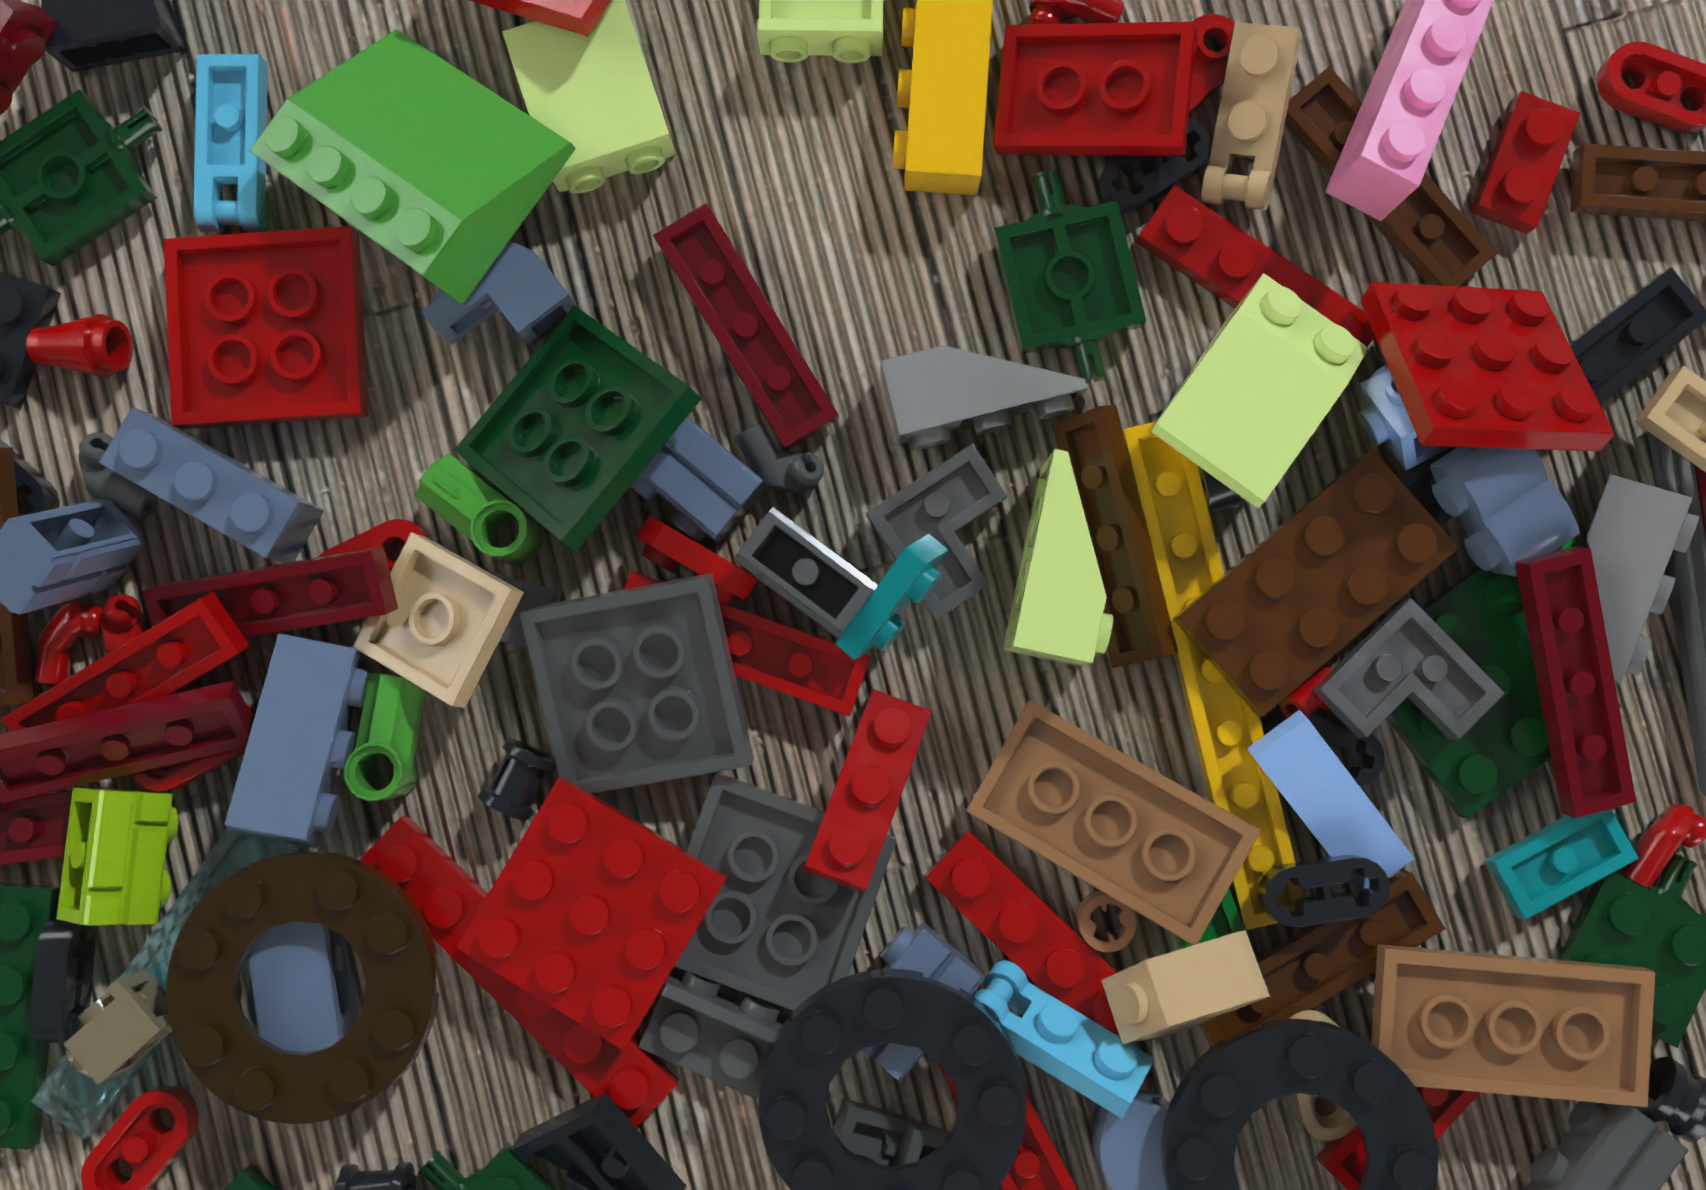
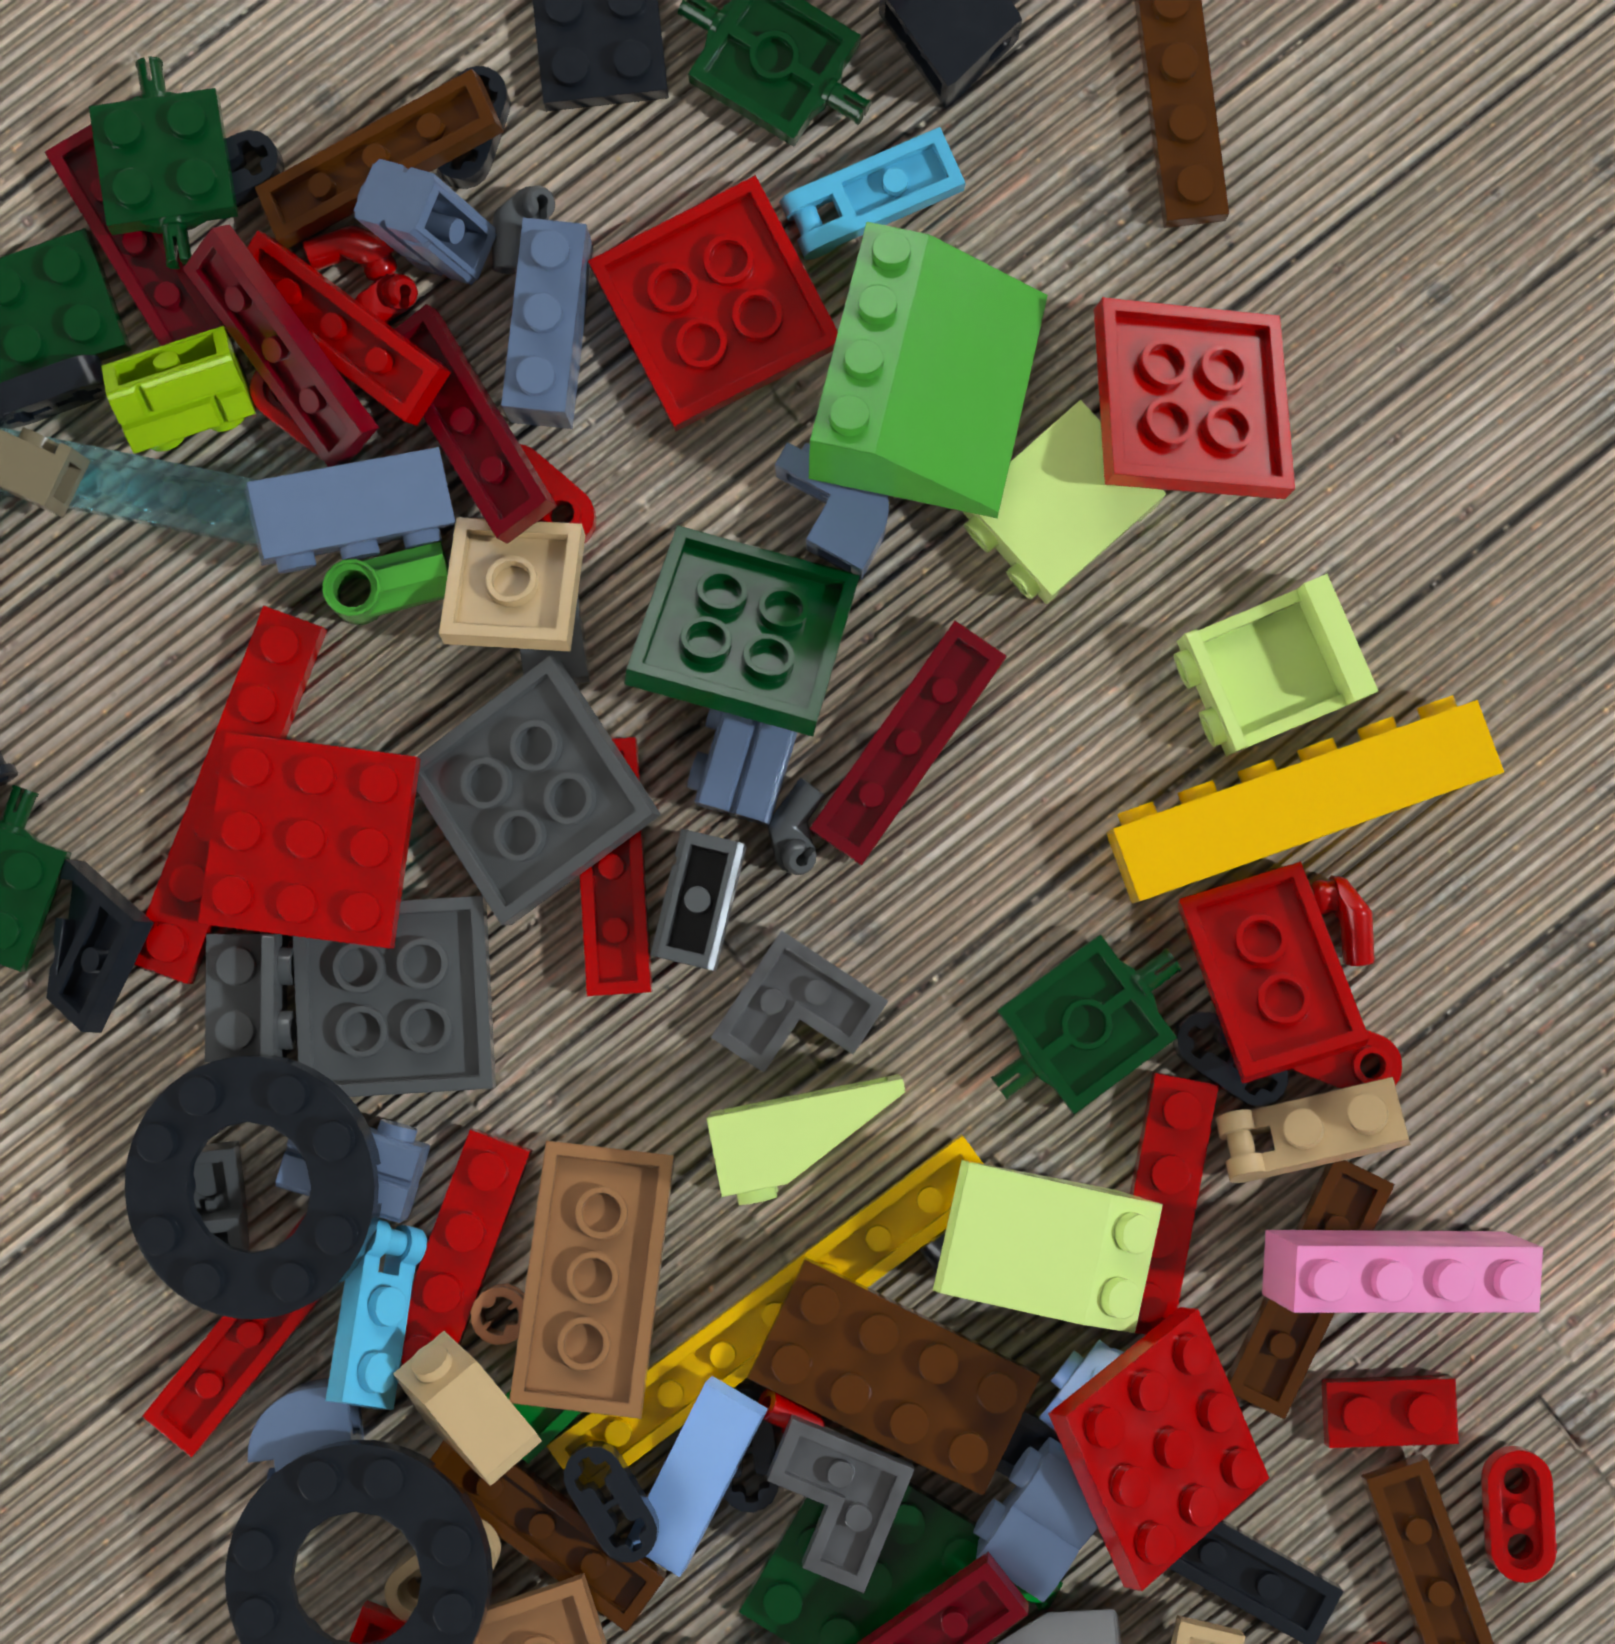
camera: 65 degrees right, 0 degrees up
(83, 345) = (627, 148): red cone -> none
(207, 988) = (191, 685): dark brown plate -> none
(301, 986) = (123, 612): sand blue brick -> none
(478, 510) = (630, 570): bright green piece -> none
(517, 779) = (401, 718): black bush -> none
(669, 548) = (671, 763): red plate -> none
(867, 791) = (525, 1043): red plate -> none
(908, 579) = (731, 996): teal plate -> none
(961, 389) = (933, 964): light grey slope -> none
(1118, 535) = (859, 1170): reddish brown plate -> none

